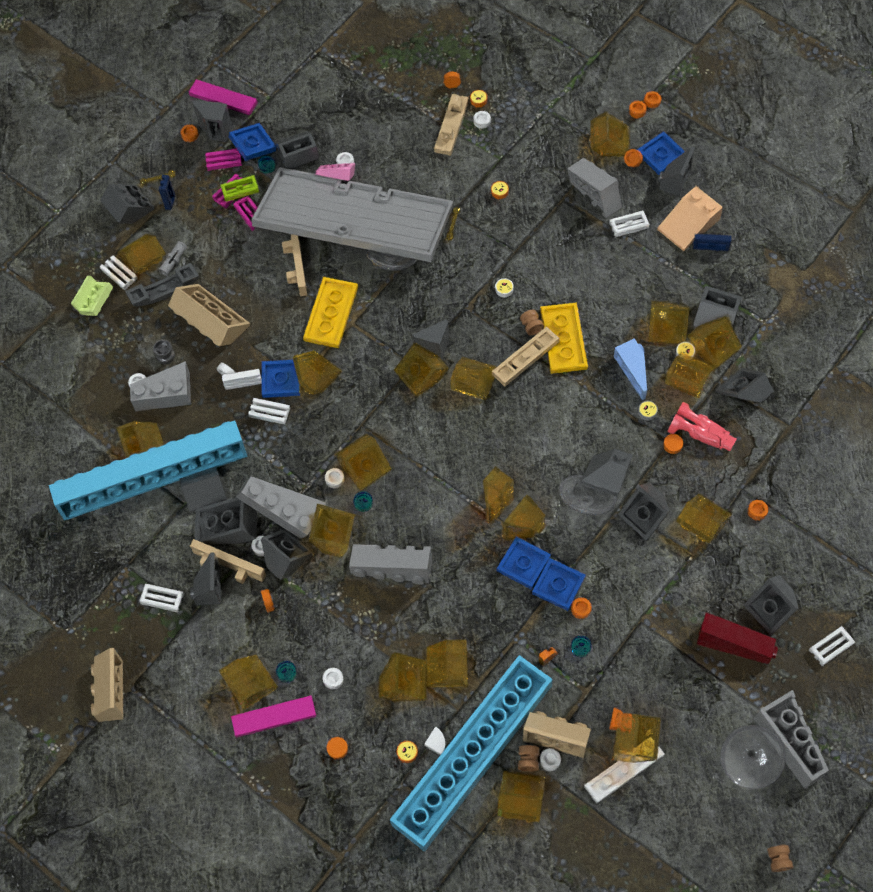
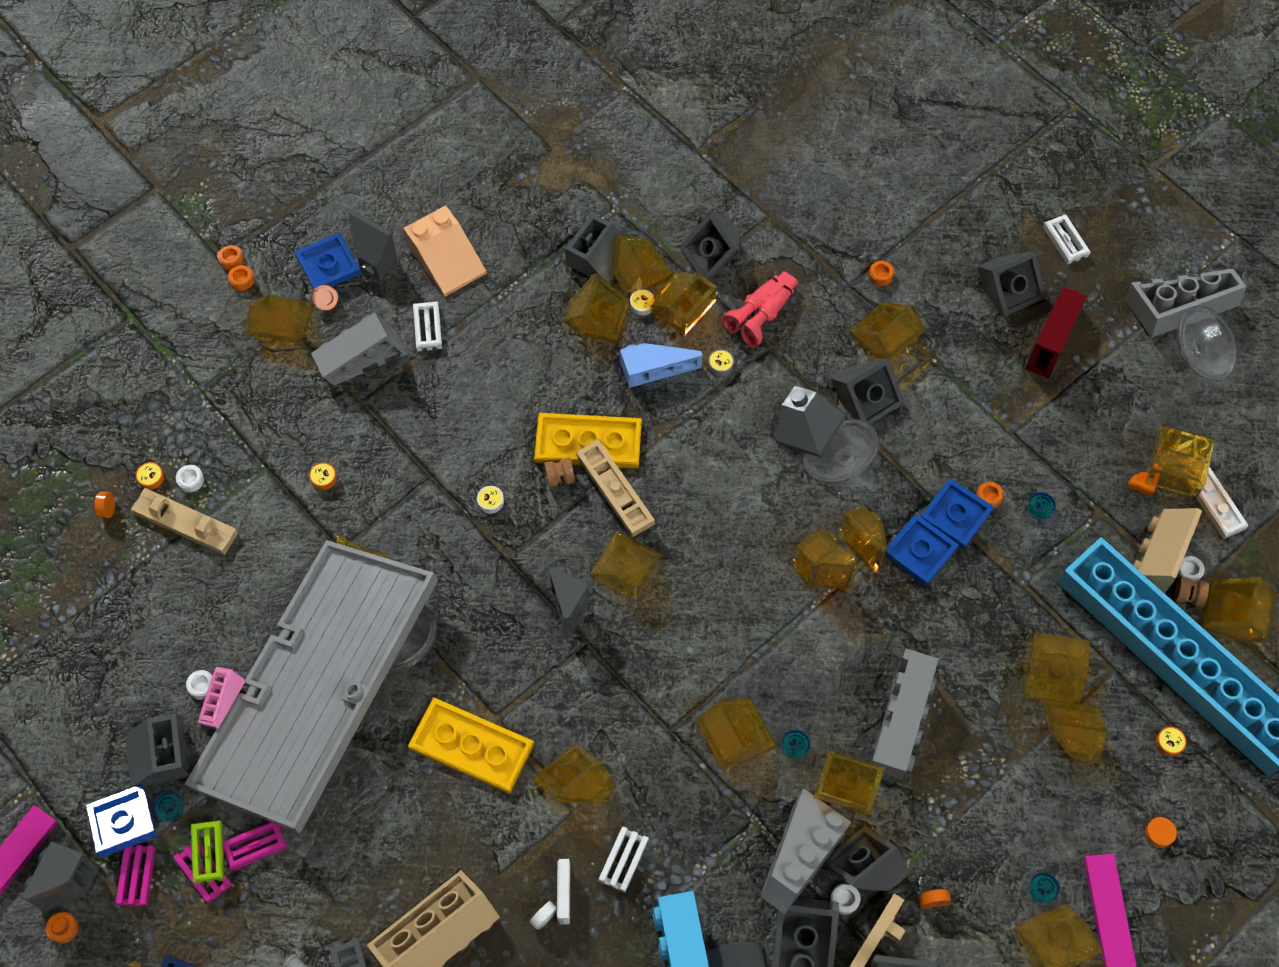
camera: 85 degrees left, 0 degrees up
(279, 379) = (573, 833): blue plate -> none
(296, 276) = (397, 779): tan hinge -> none
(333, 678) = (1059, 824): white tile -> none
(334, 478) = (752, 779): white tile -> none
(420, 369) = (604, 630): clear yellow slope -> none
(436, 741) = (1159, 702): white tile -> none
(546, 656) = (1054, 545): orange tile -> none
(673, 443) = (774, 344): orange tile -> none
(712, 242) = (488, 234): dark blue tile -> none

